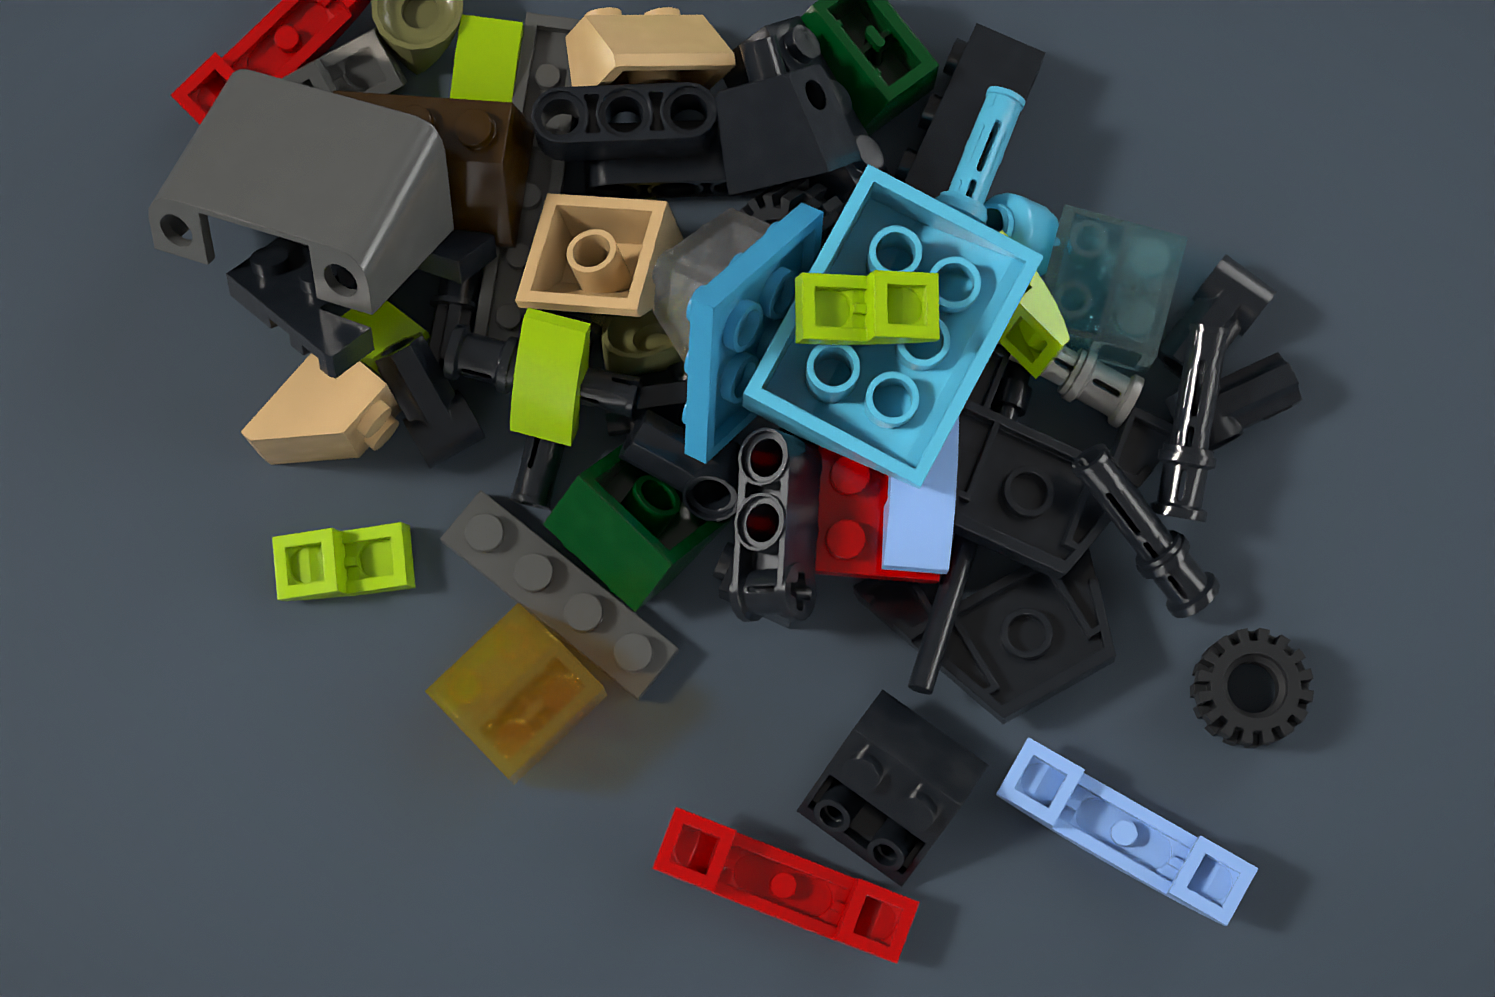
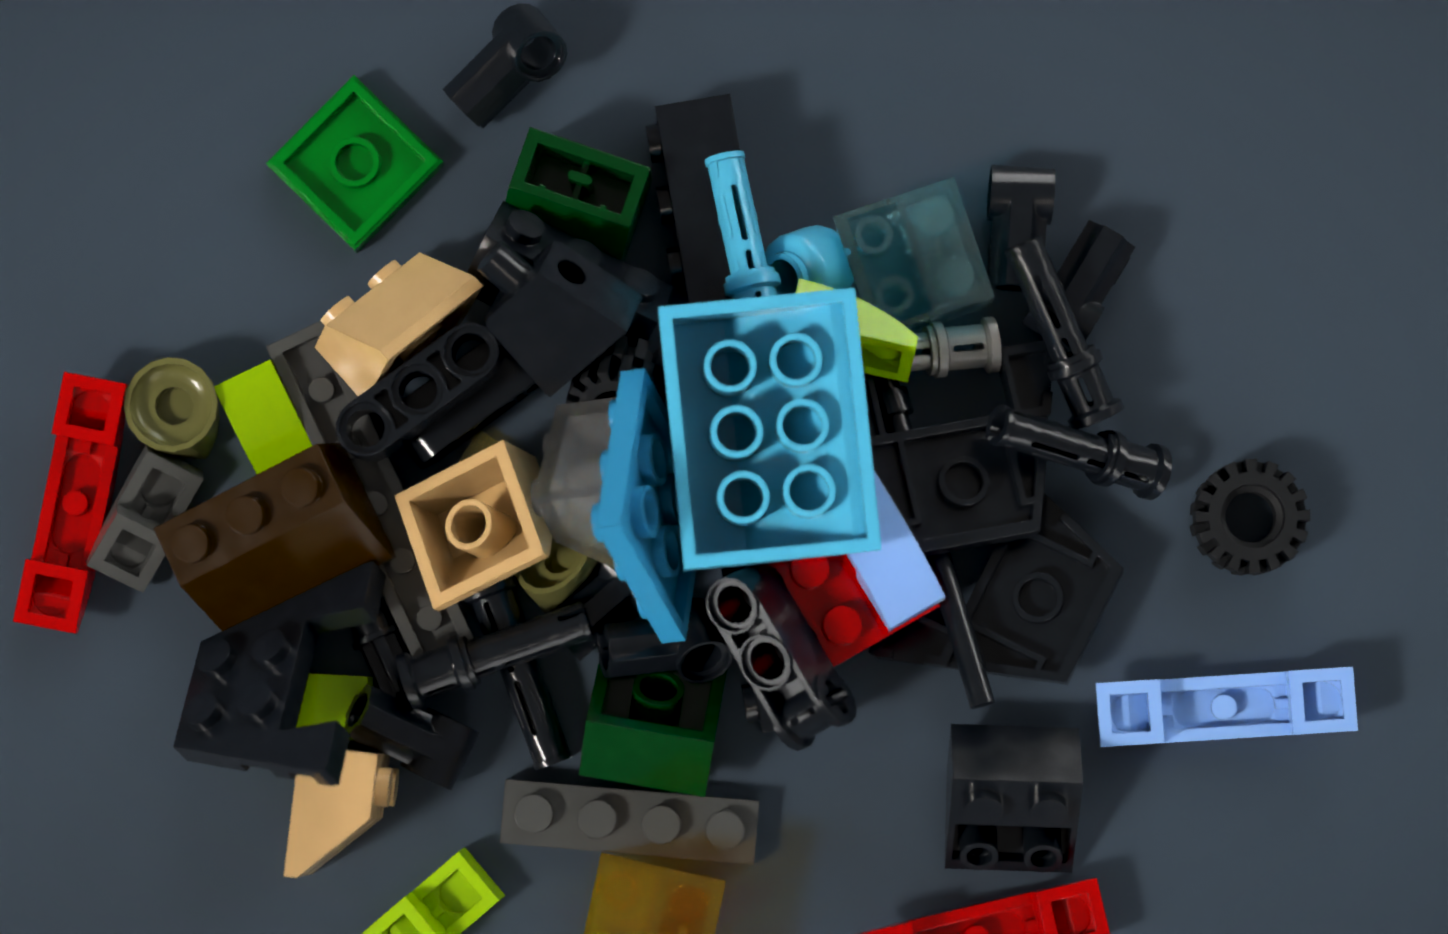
camera: 30 degrees left, 5 degrees up
(315, 170) = (192, 621): dark grey windscreen -> none
(549, 376) = (505, 653): lime slope -> none
(867, 309) = (740, 432): lime slope -> none

